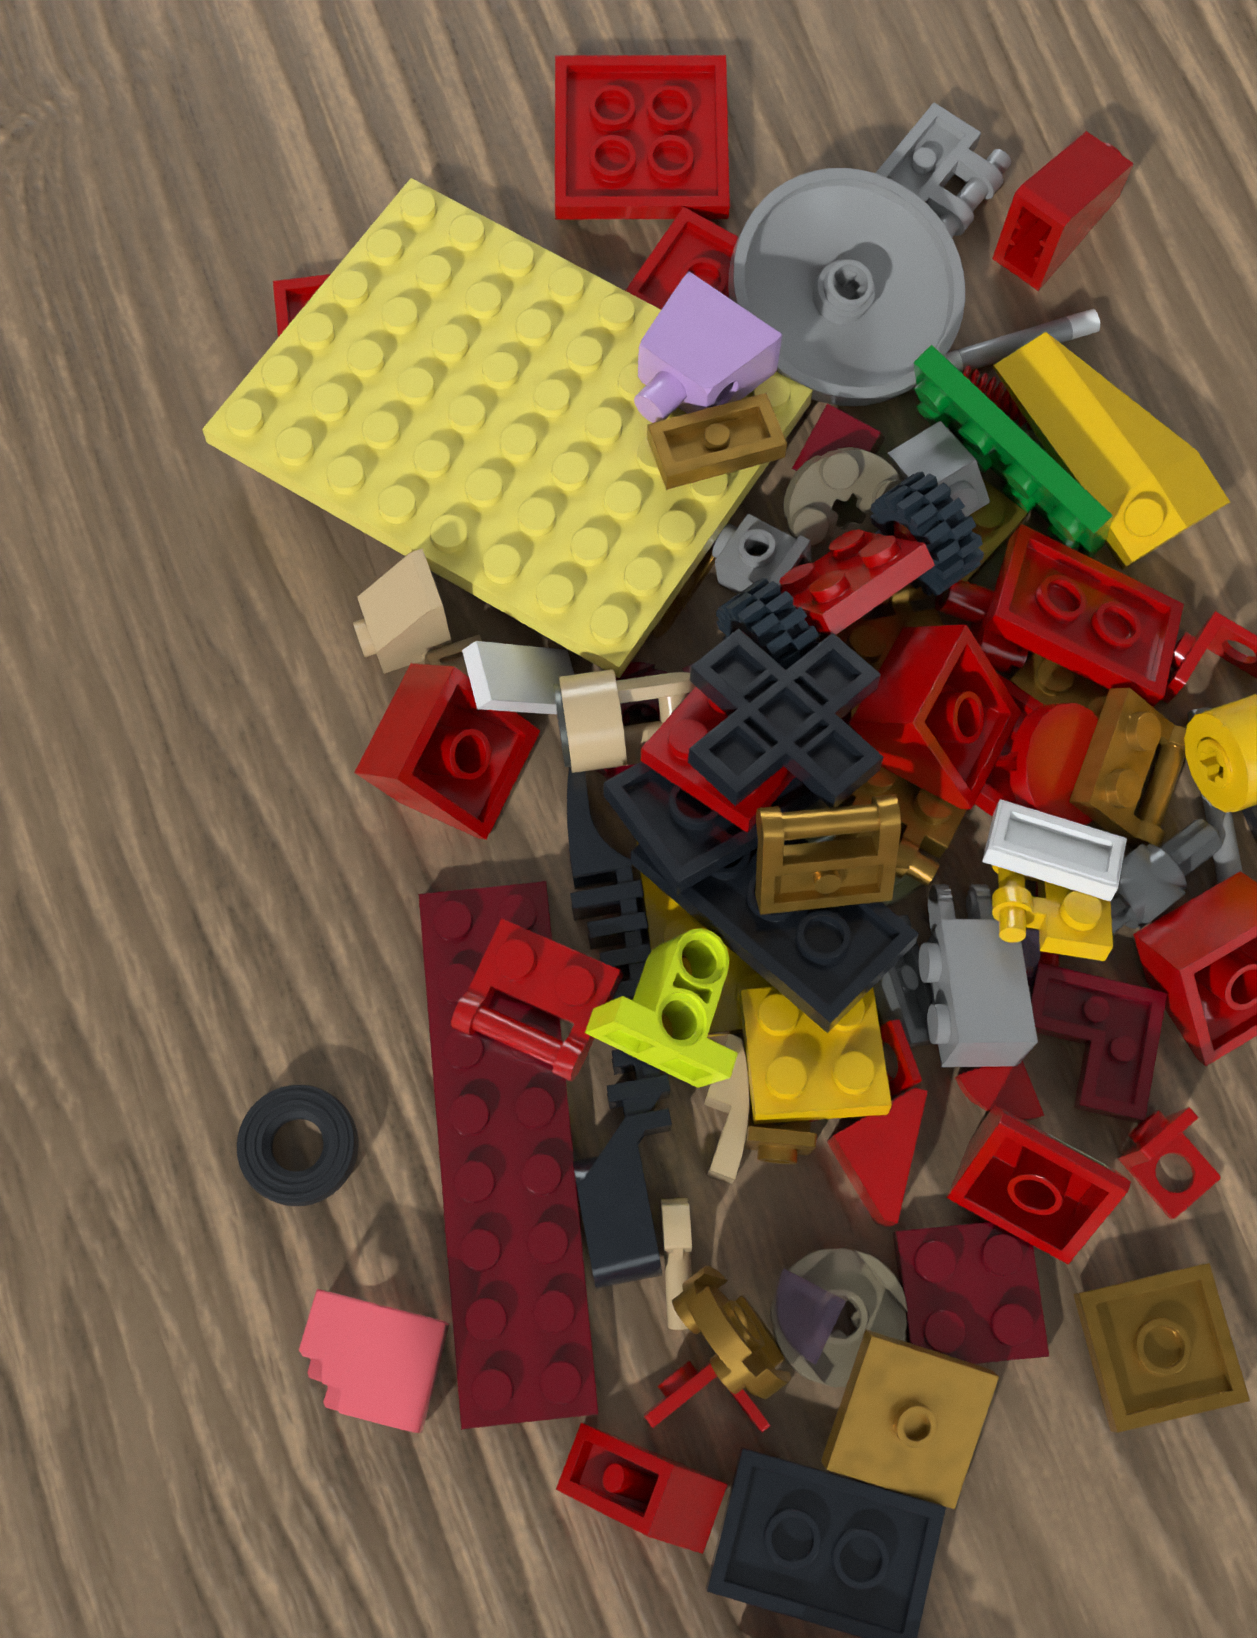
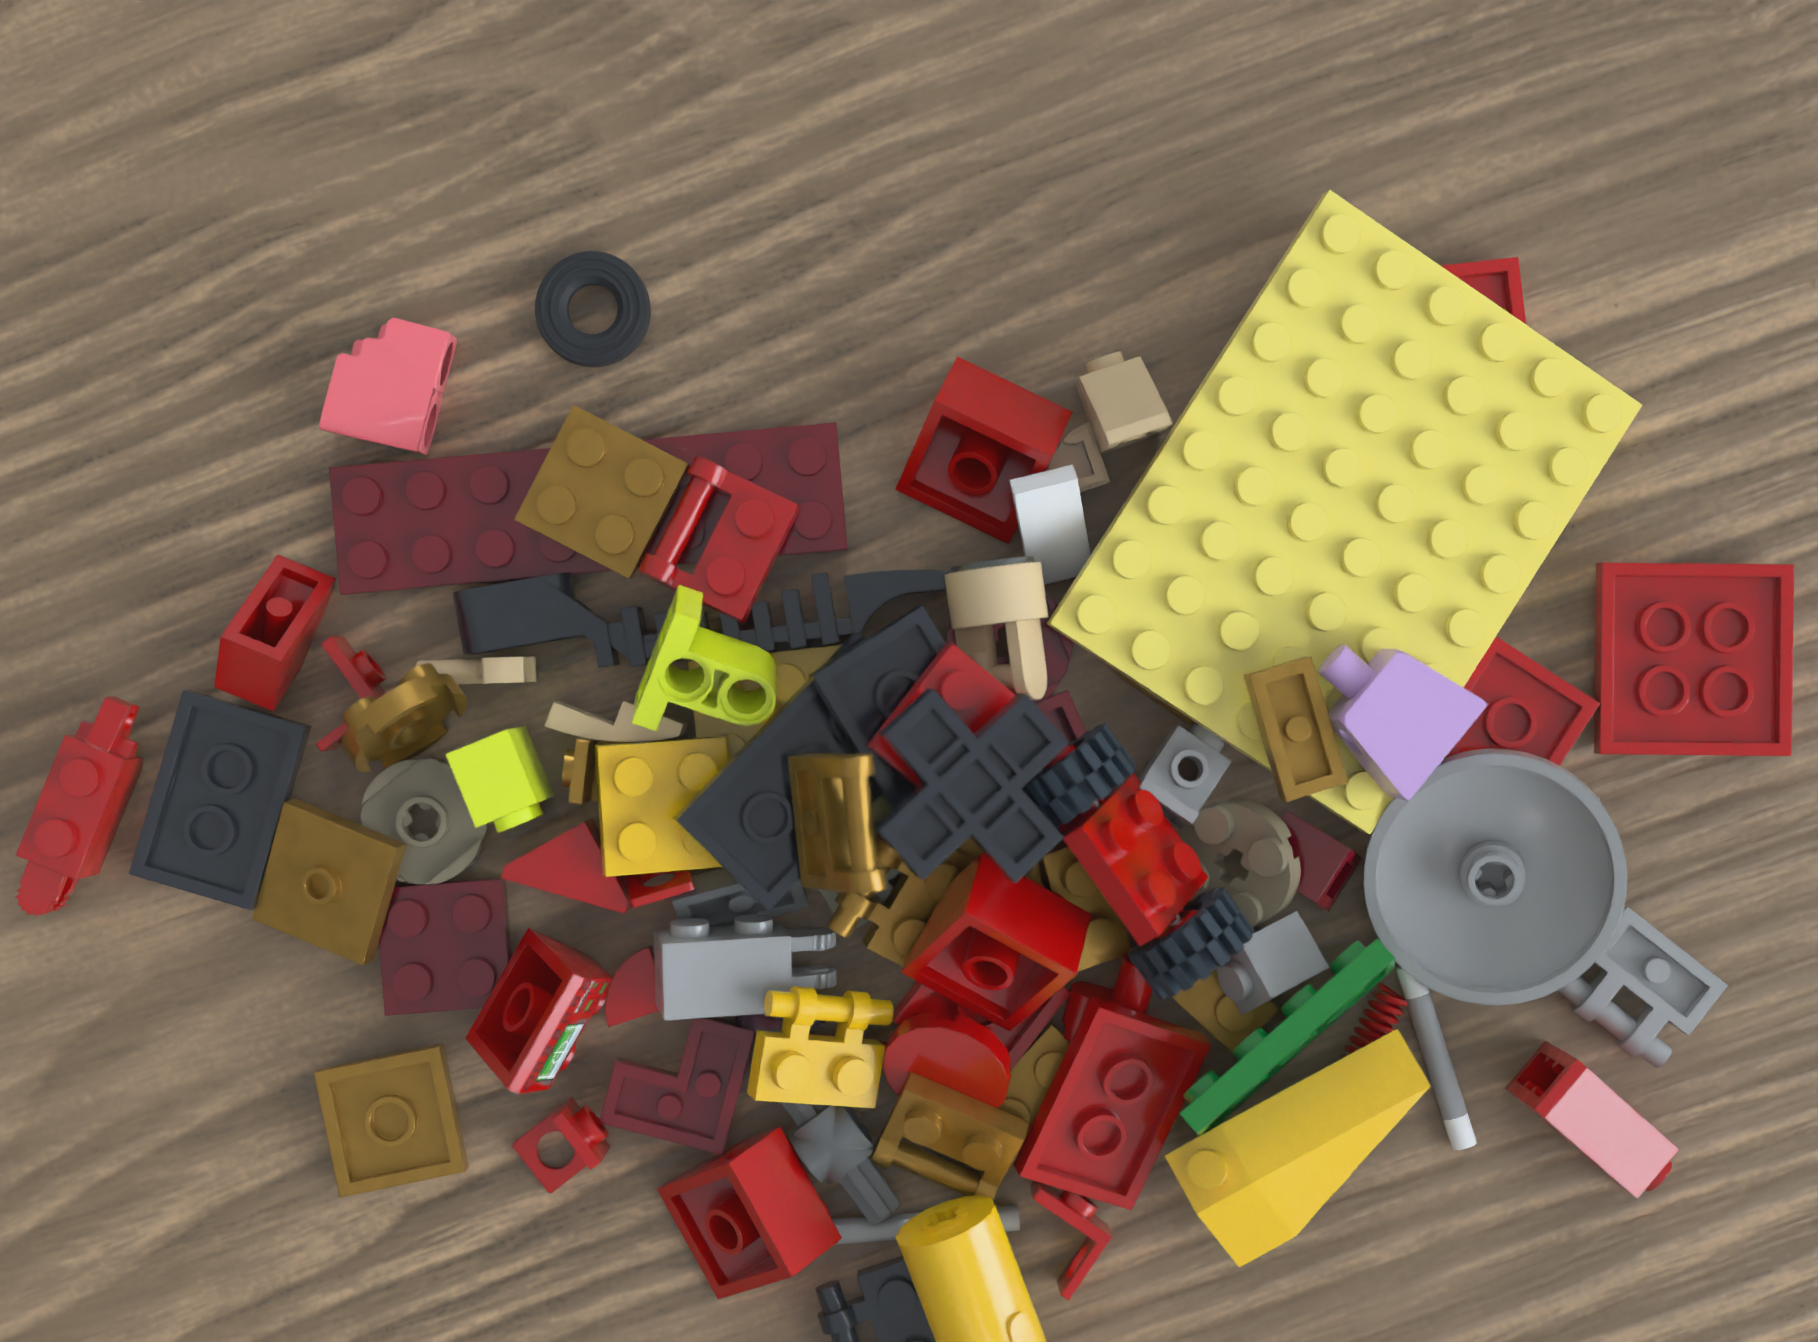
camera: 90 degrees right, 15 degrees up
(488, 1124) = (602, 492): none -> pearl gold plate
(793, 1221) = (501, 779): none -> neon yellow brick
(805, 1314) = (420, 790): clear purple tile -> none
(1055, 850) = (854, 1051): white tile -> none

